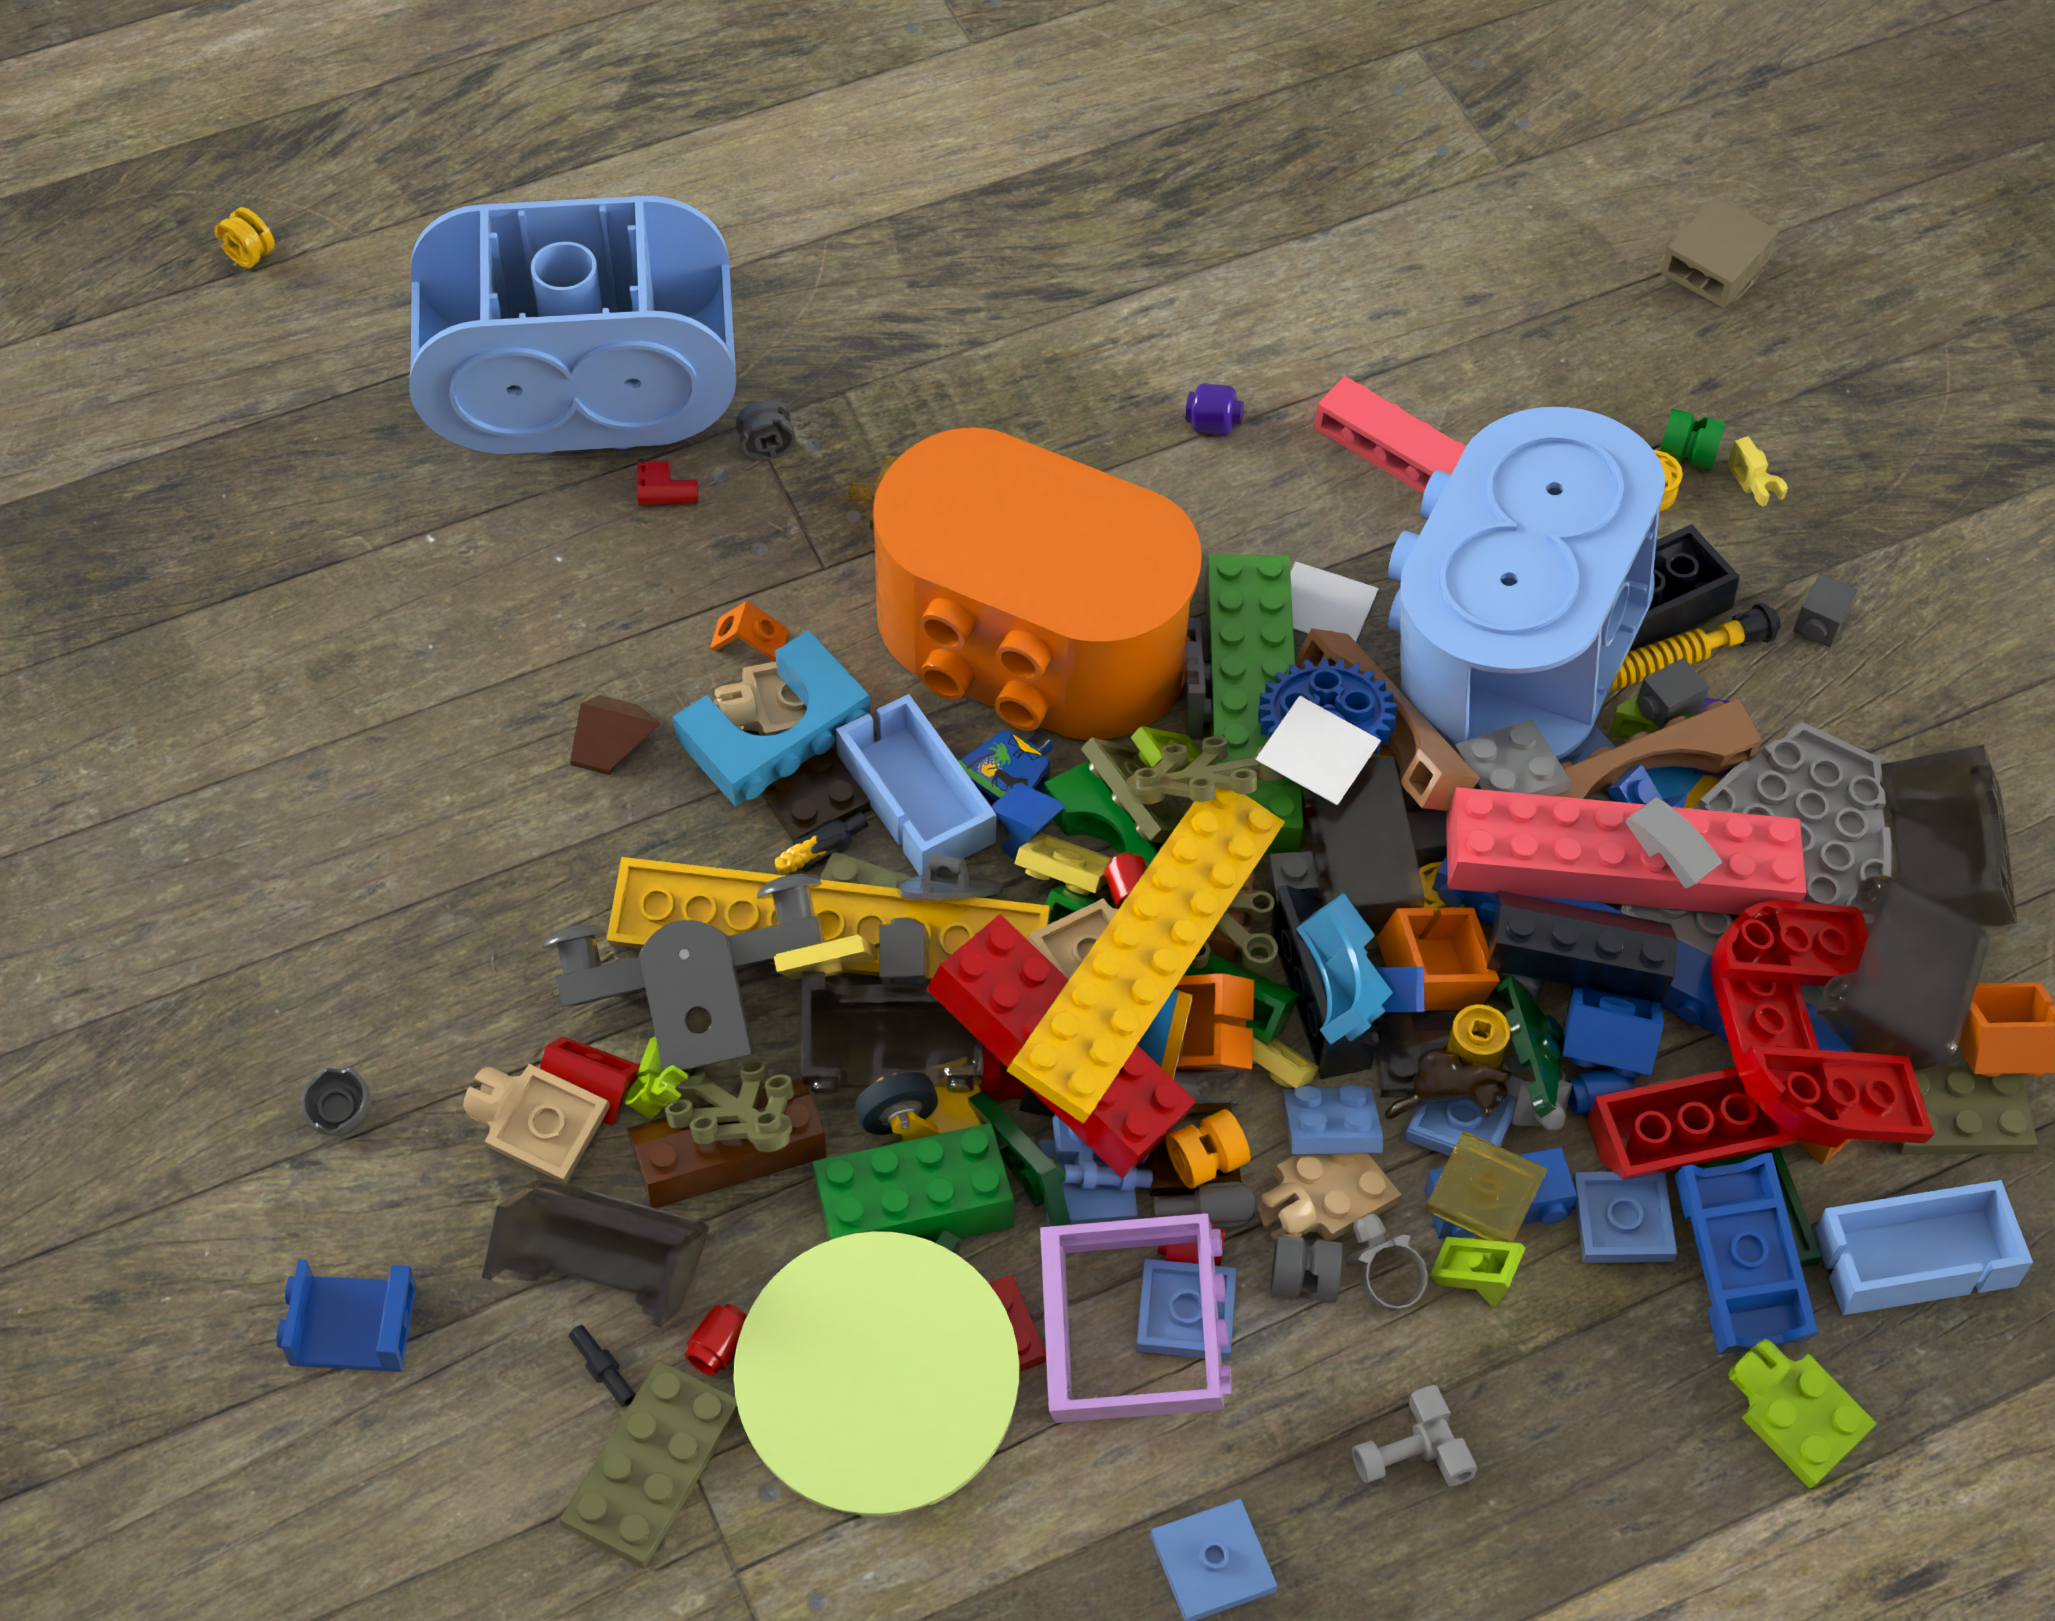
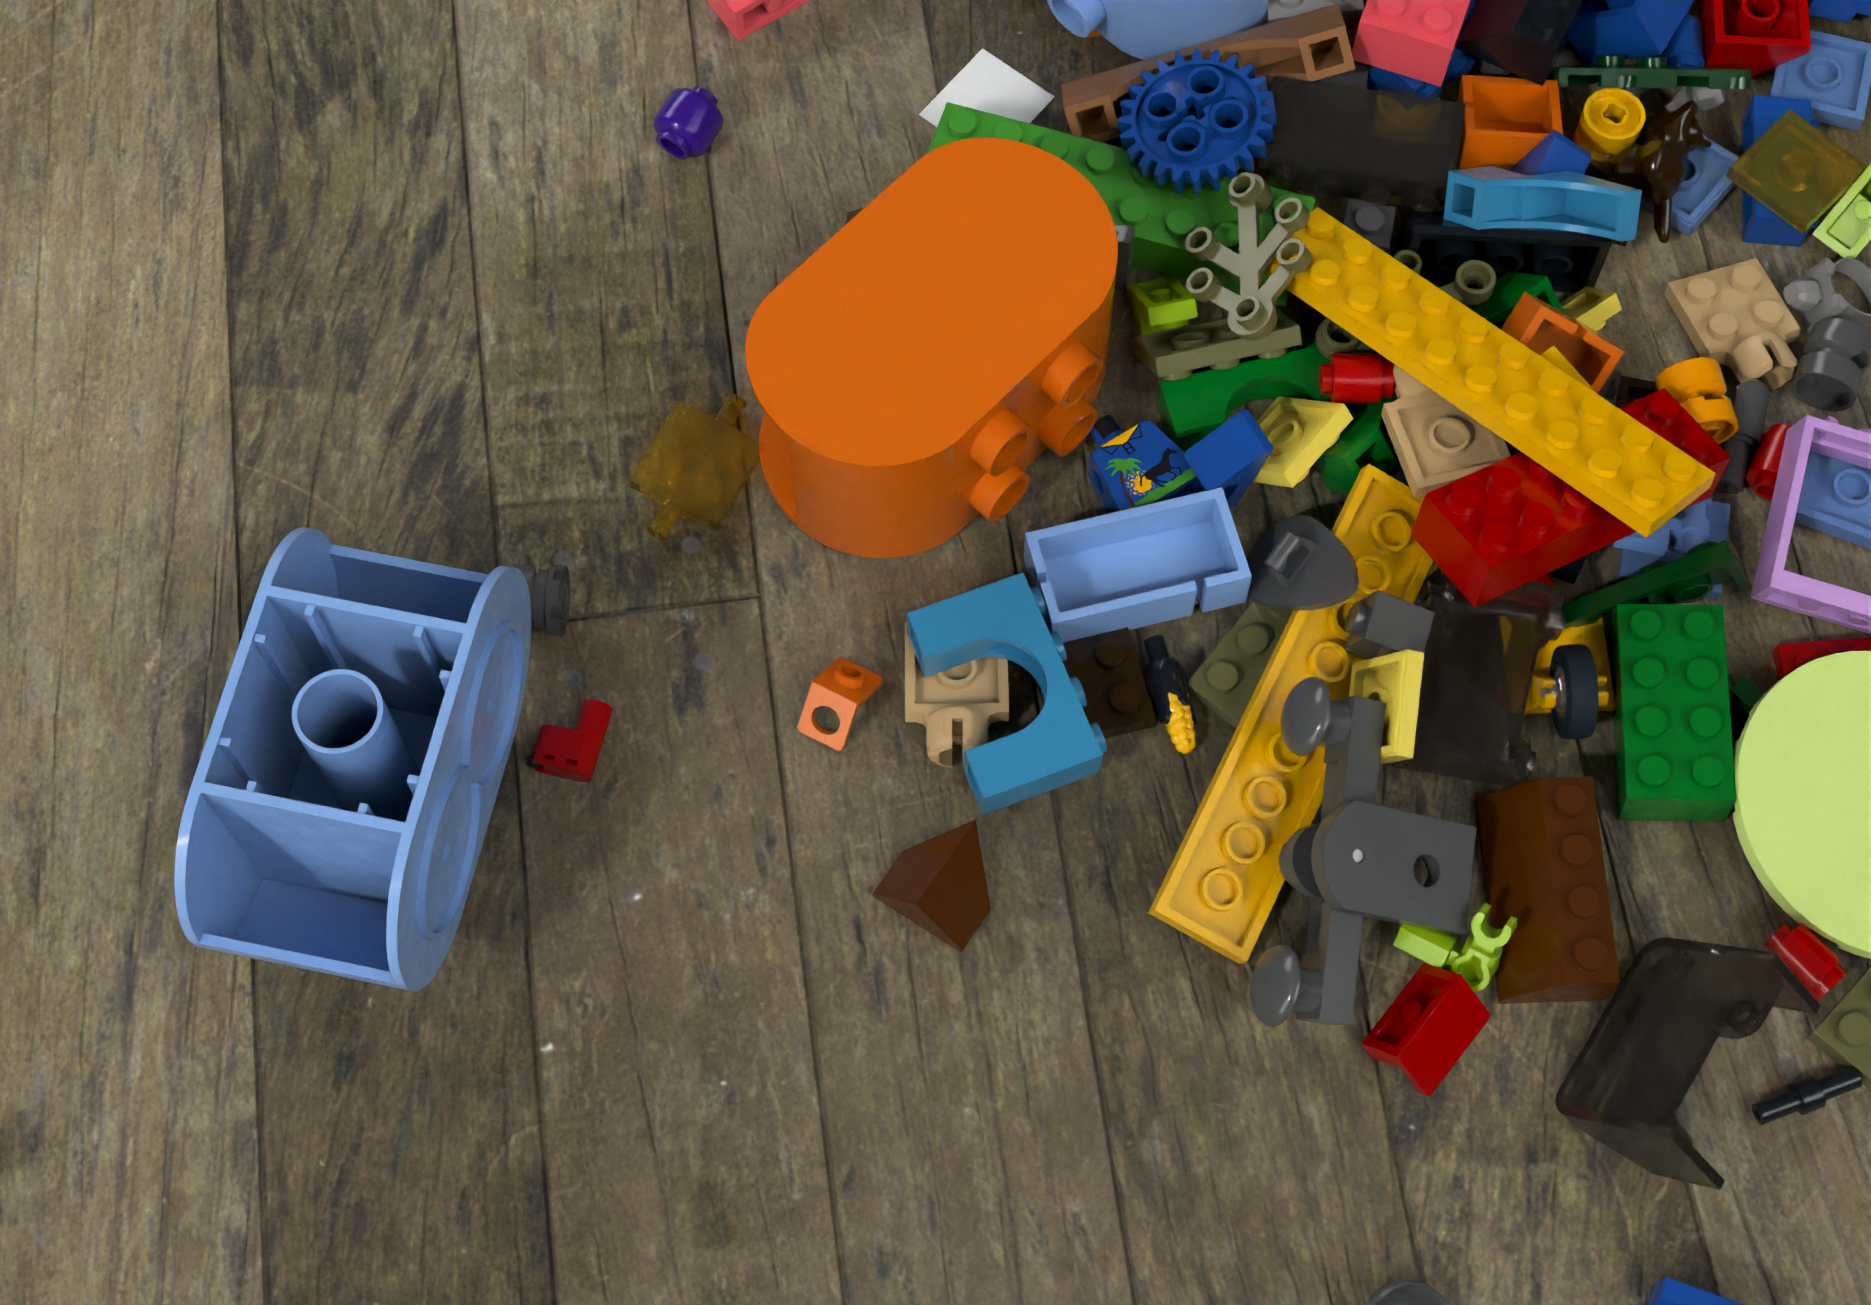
camera: 70 degrees left, 10 degrees up
(536, 1118) = (1478, 1095): tan plate -> none
(765, 1129) = (1548, 858): olive plant -> none
(1318, 750) = (1263, 136): white sticker -> none
(1332, 1120) = (1666, 289): medium blue plate -> none

